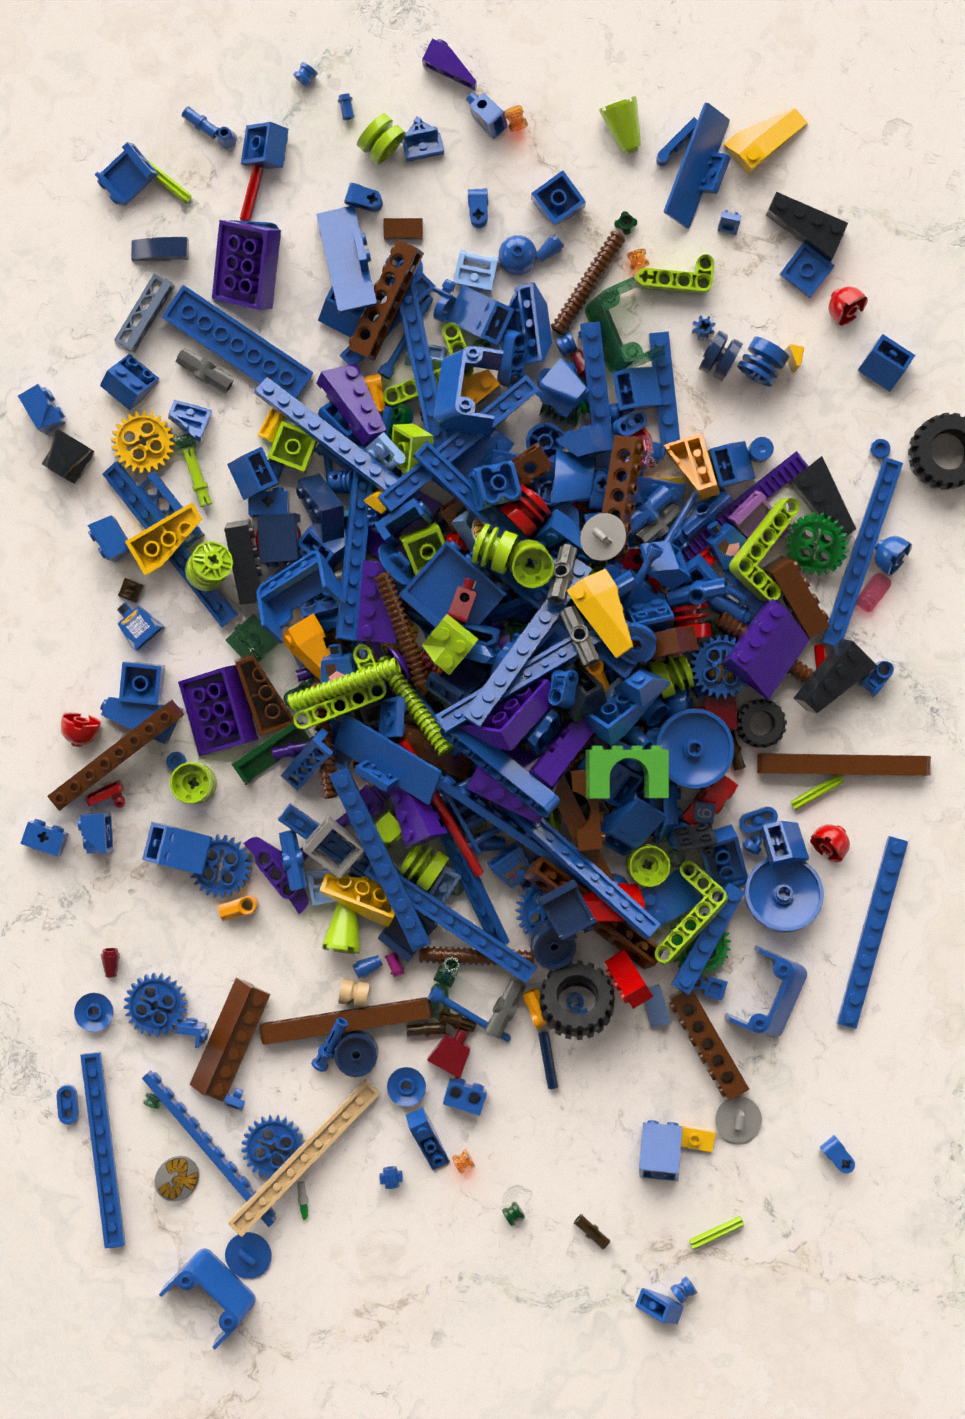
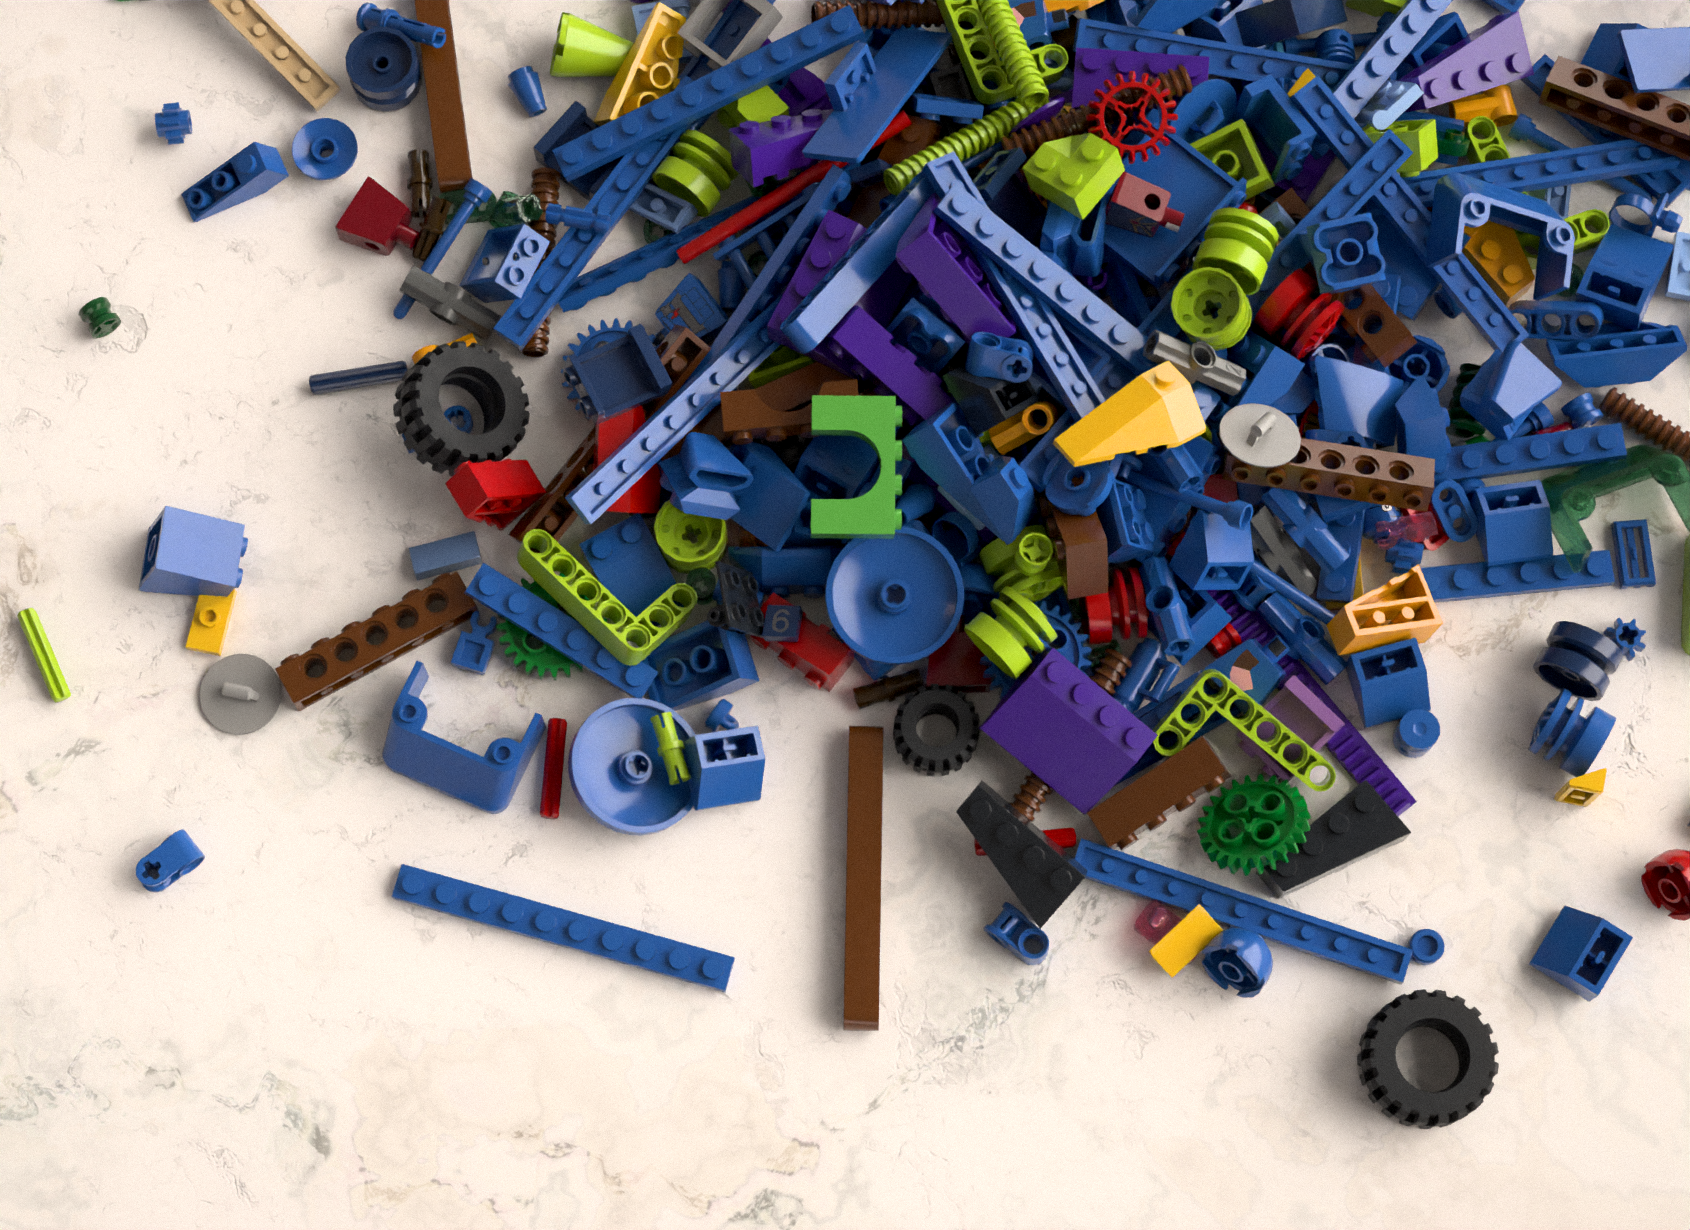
camera: 90 degrees right, 15 degrees down
(354, 993) = (483, 72): tan wheel -> none
(394, 964) = (528, 134): magenta pin -> none
(425, 617) = (1118, 109): none -> red gear
(435, 760) = (869, 173): none -> dark blue tile
(458, 935) = (578, 218): none -> blue axle
(462, 1101) = (295, 240): blue brick -> none
(463, 1161) = (193, 238): clear orange wheel -> none
(488, 989) = (502, 276): none -> blue window
(548, 948) = (542, 366): dark blue wheel -> none
(584, 646) = (1074, 388): dark grey piece -> none
(592, 1231) = (76, 428): dark brown pin -> none
(626, 859) = (704, 477): none -> blue piece
(650, 319) = (1636, 581): none -> blue tile
(676, 666) = (1036, 547): none -> lime wheel
(722, 685) = (1010, 632): none -> lime wheel
(757, 818) = (770, 728): blue plate -> none
(775, 874) = (670, 748): none -> lime pin
(781, 940) = (553, 768): none -> red axle
(817, 791) = (814, 832): lime axle -> none
(831, 841) = (727, 851): red cylinder -> none
(881, 584) = (1185, 941): none -> yellow slope

